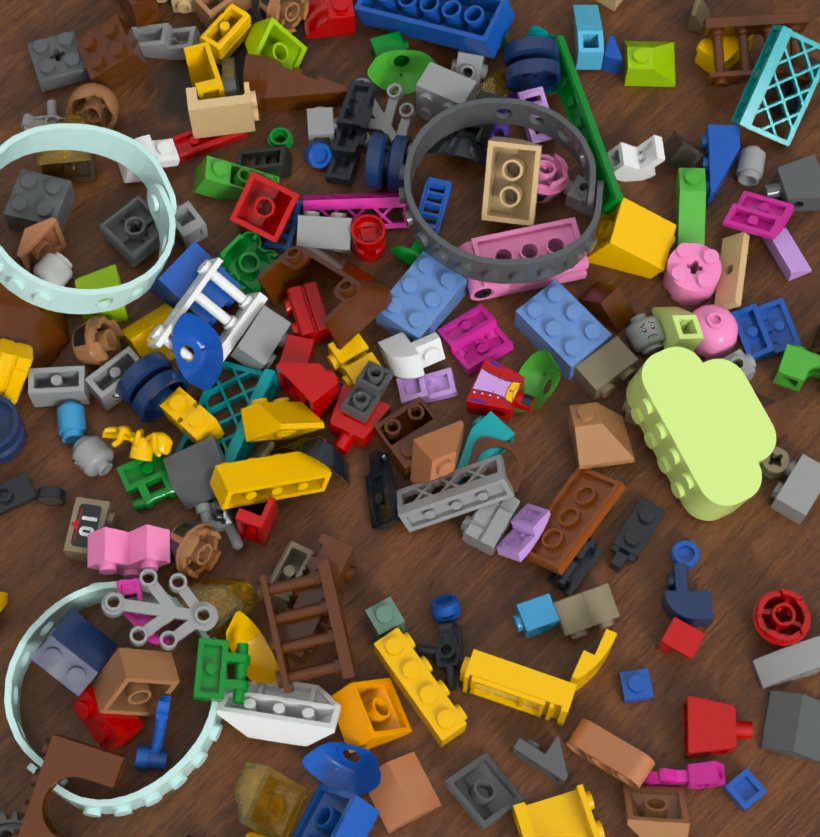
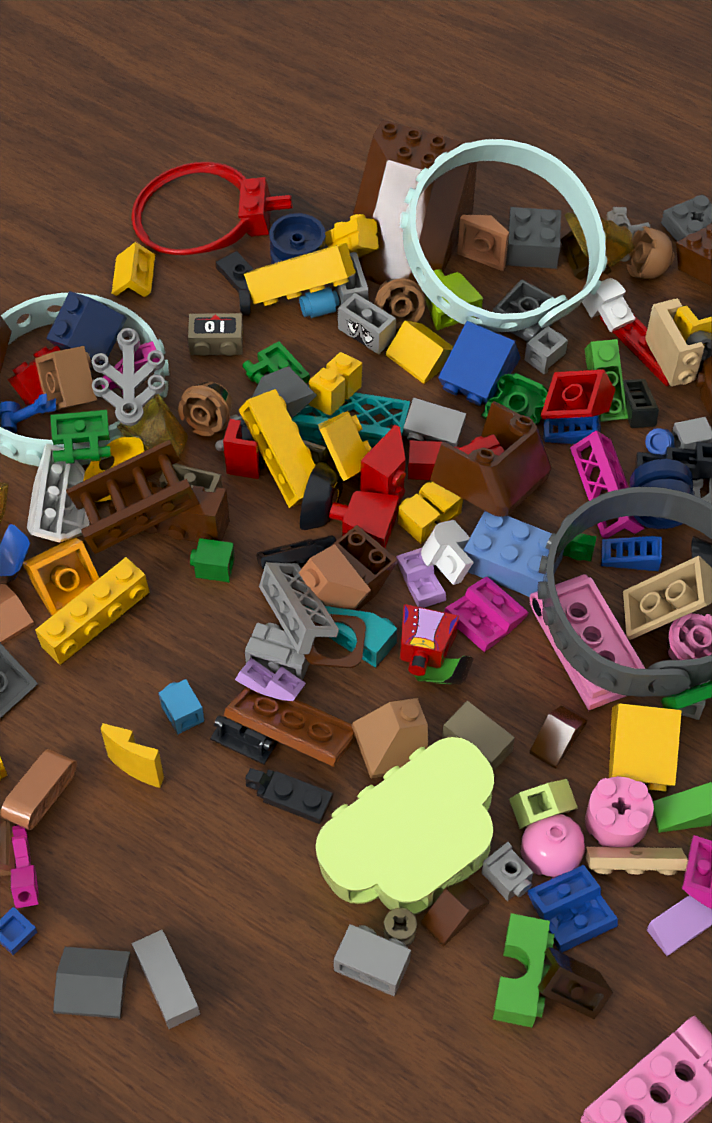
camera: 80 degrees right, 10 degrees down
(47, 427) = (300, 273): none -> yellow brick
(54, 269) = (466, 259): white head -> none
(92, 456) = (289, 324): light grey head -> none
(128, 552) = (193, 356): bright pink brick -> none
(142, 447) = (299, 349): yellow animal -> none
(149, 384) = (365, 340): dark blue wheel -> none
(207, 363) = (385, 378): blue piece -> none
(233, 326) = (394, 388): white fence -> none
(280, 134) = (669, 409): green plate -> none
(324, 233) = (566, 457): light grey brick -> none
(367, 391) = (393, 515): dark grey slope -> none
(368, 238) = (571, 492): red wheel -> none
(377, 567) = (213, 560): none -> green brick
(384, 618) = (160, 572): sand green brick -> none
(445, 608) = (181, 624): blue tile -> none
(447, 653) = (133, 632): black piece -> none
(517, 686) = (97, 691): yellow door -> none
(549, 764) = (29, 735): dark grey slope -> none
(562, 326) = (516, 685): medium blue brick -> none
(586, 610) = (192, 749): dark tan brick -> none
(635, 685) = (120, 813): blue plate -> none
(645, 334) = (529, 771): light grey head -> none
(681, 638) = (172, 846): red panel -> none
(685, 552) = (275, 847): blue tile -> none
(686, 605) = (214, 843): dark blue brick -> none
(711, 728) = (77, 888): red torso -> none
(781, 617) = (206, 942): red cone -> none

